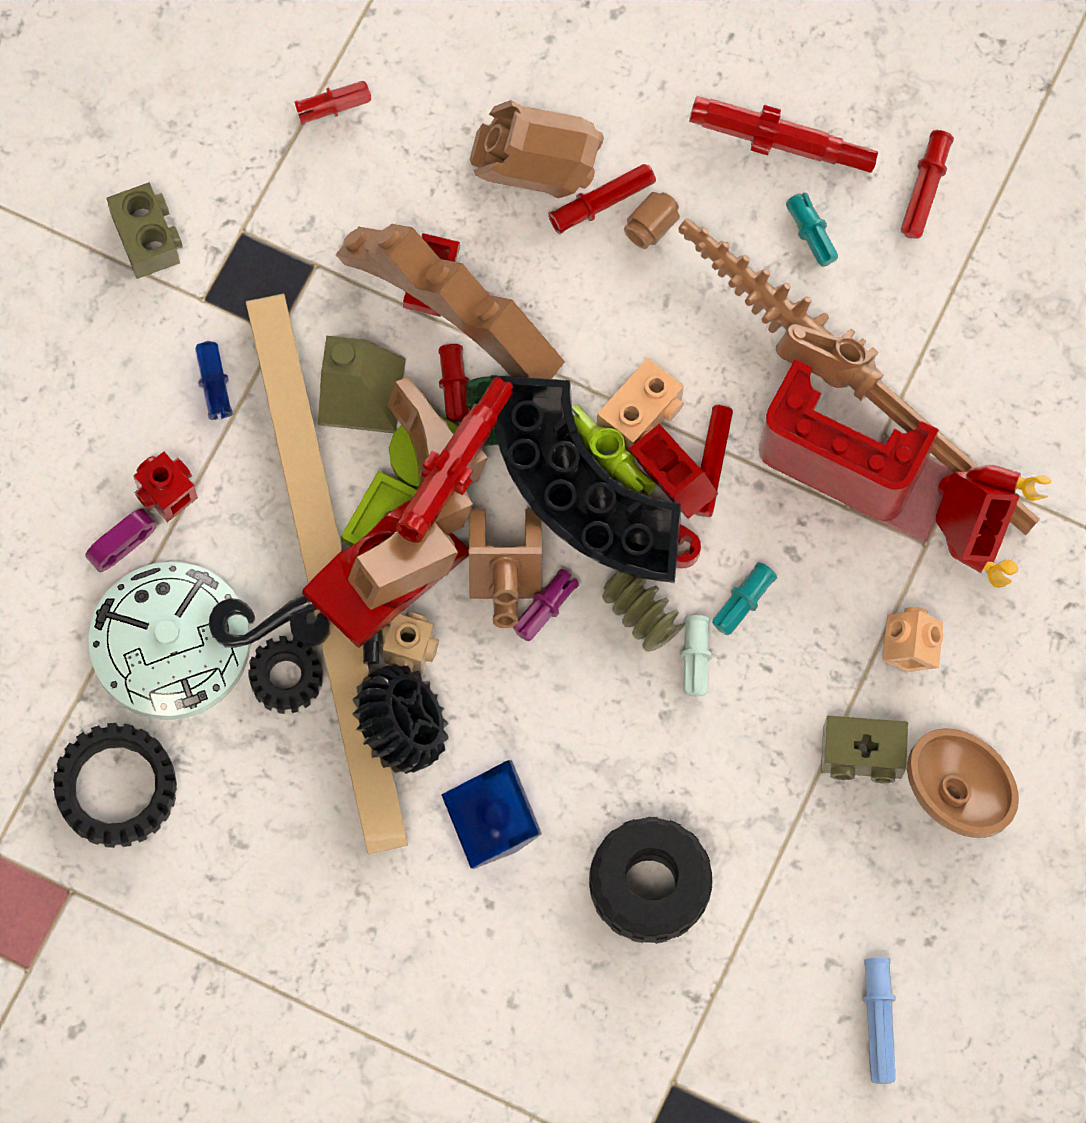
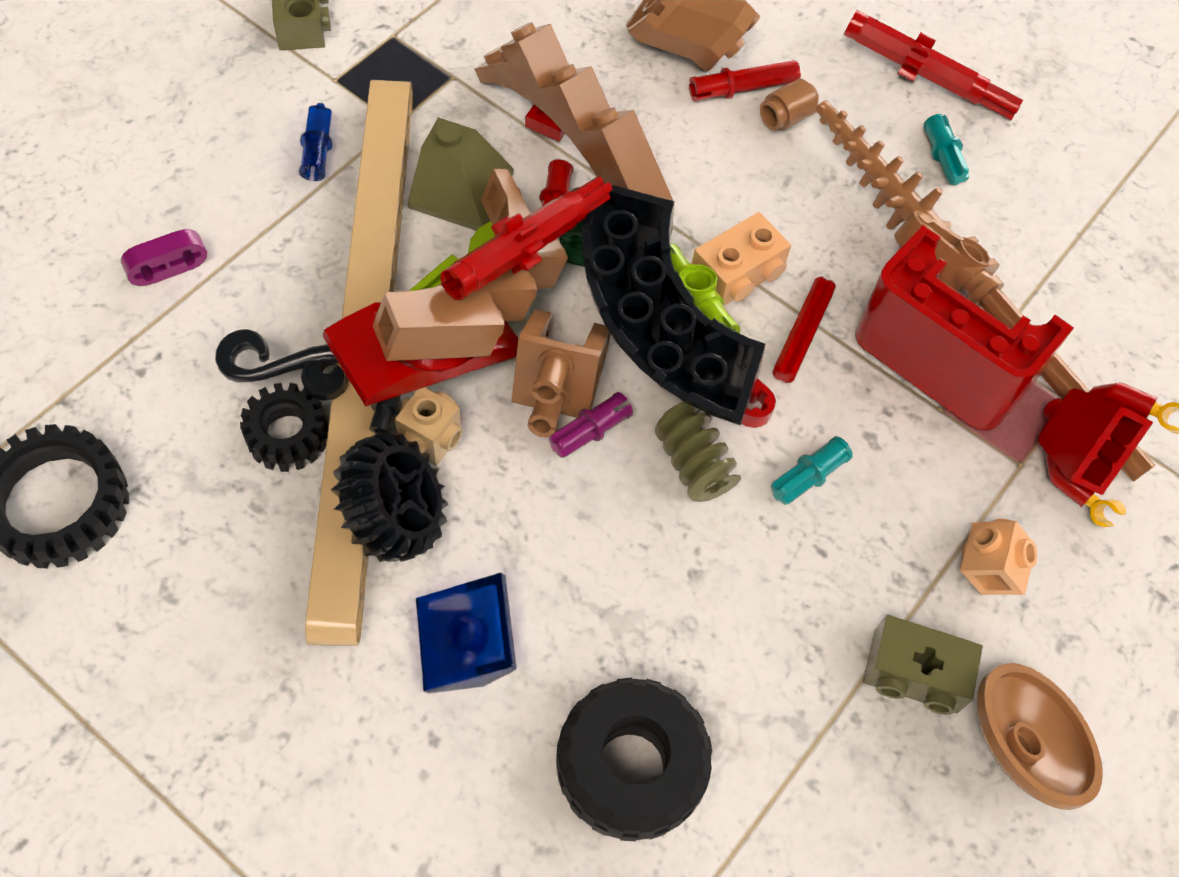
camera: 10 degrees right, 10 degrees down
(156, 641) = (157, 371): light aqua dish -> none
(164, 485) = (227, 216): red brick -> none
(673, 471) = (765, 318): red brick -> none
(696, 655) = (745, 516): light aqua axle -> none
(931, 170) = (1071, 128): red axle -> none

